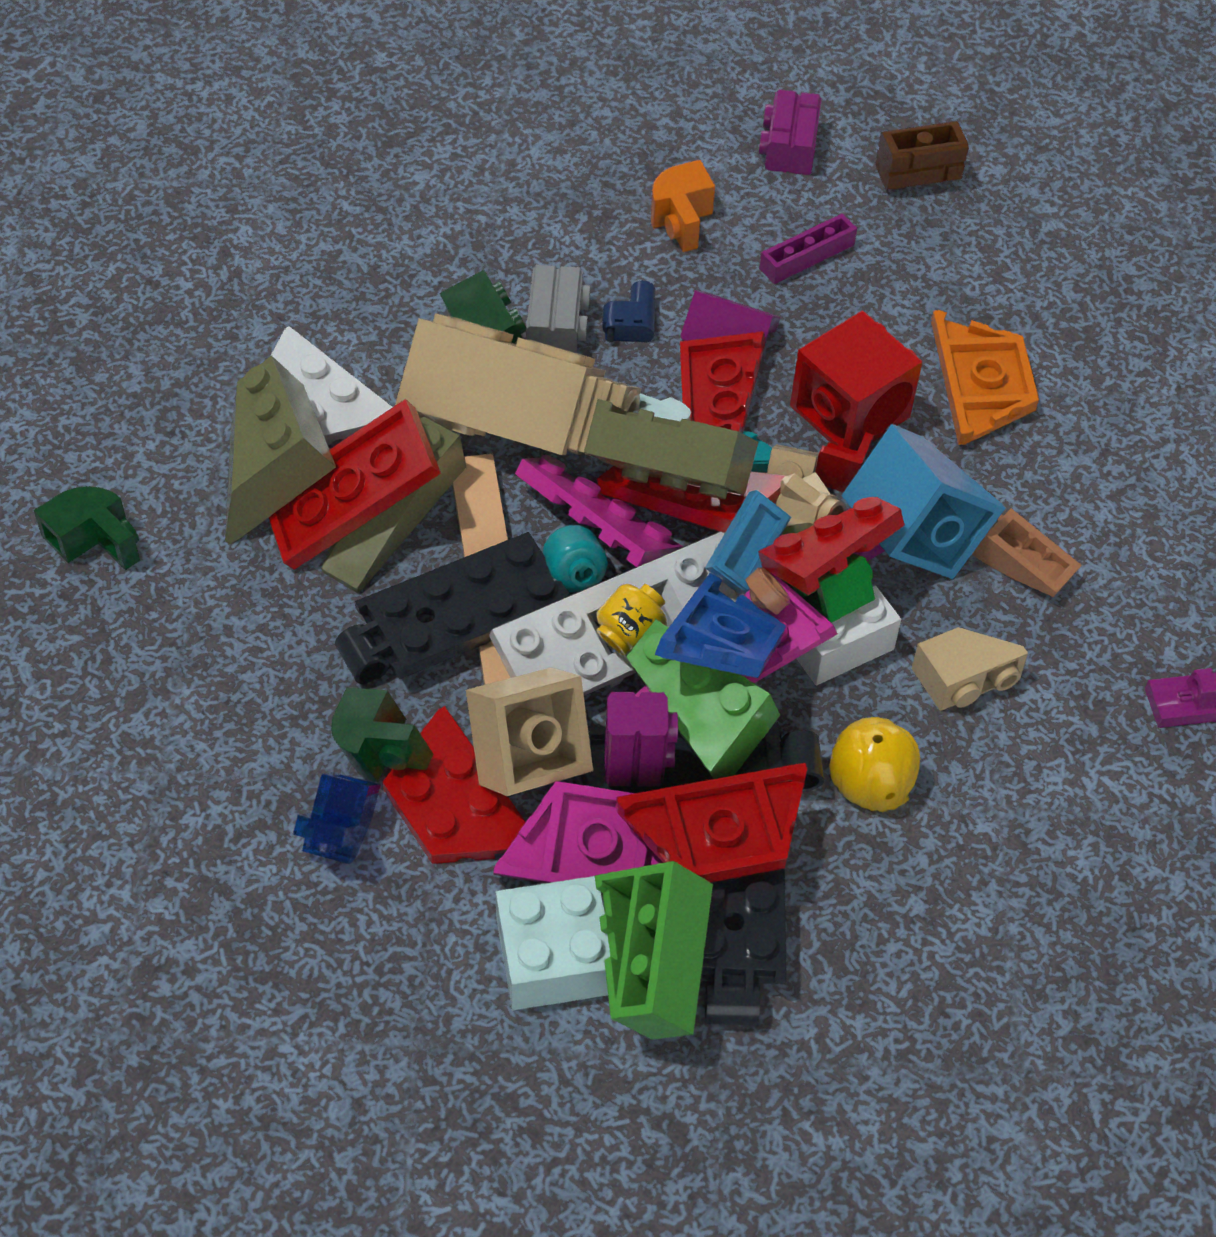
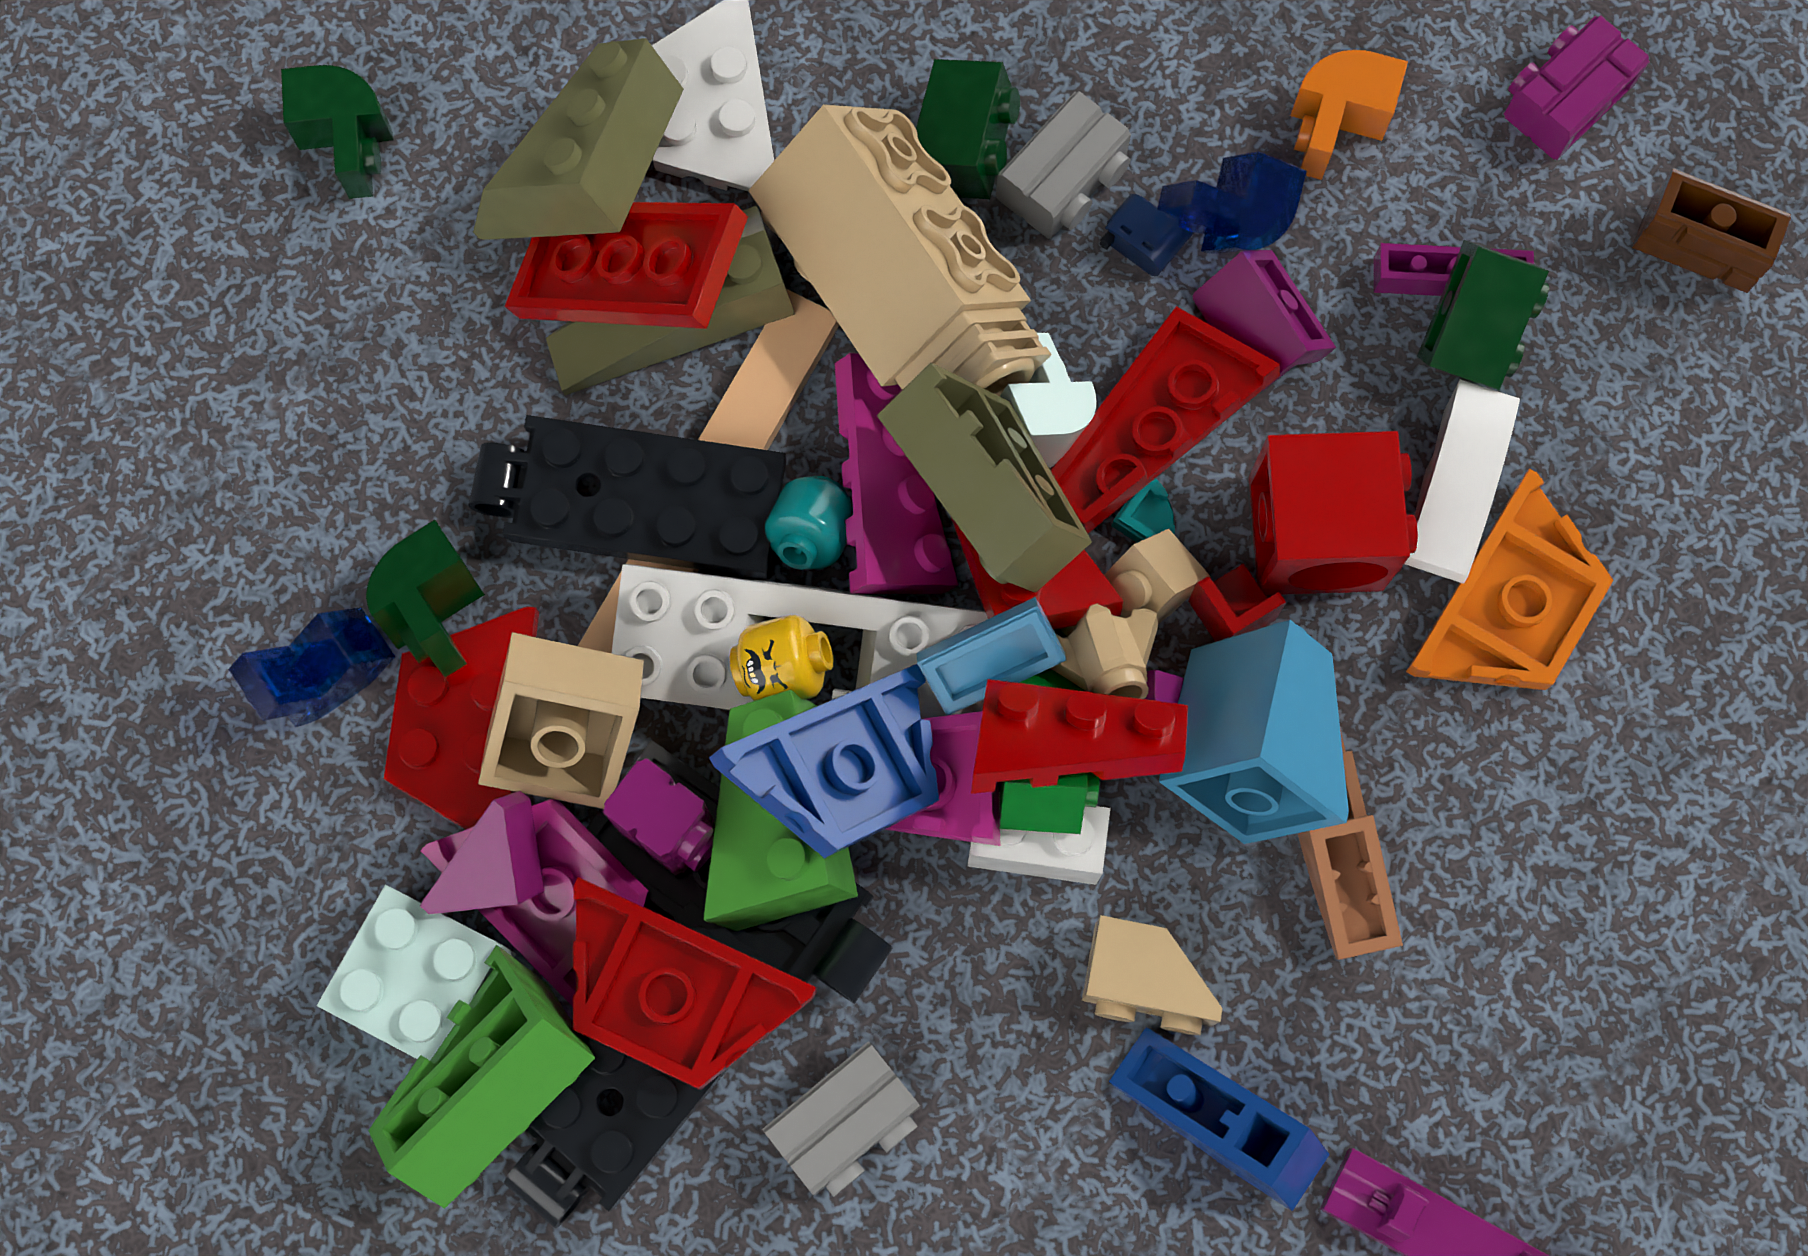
camera: 40 degrees right, 20 degrees up
(556, 833) = (494, 863): none -> magenta slope
(670, 272) = (1247, 207): none -> clear blue brick
(767, 591) = (950, 741): nougat tile -> none
(847, 249) = (1484, 315): none -> dark green brick
(871, 849) = (843, 1120): none -> light grey brick
(875, 764) = (932, 1050): yellow piece -> none
(906, 321) = (1462, 479): none -> white slope
(1071, 708) = (1222, 1118): none -> blue slope

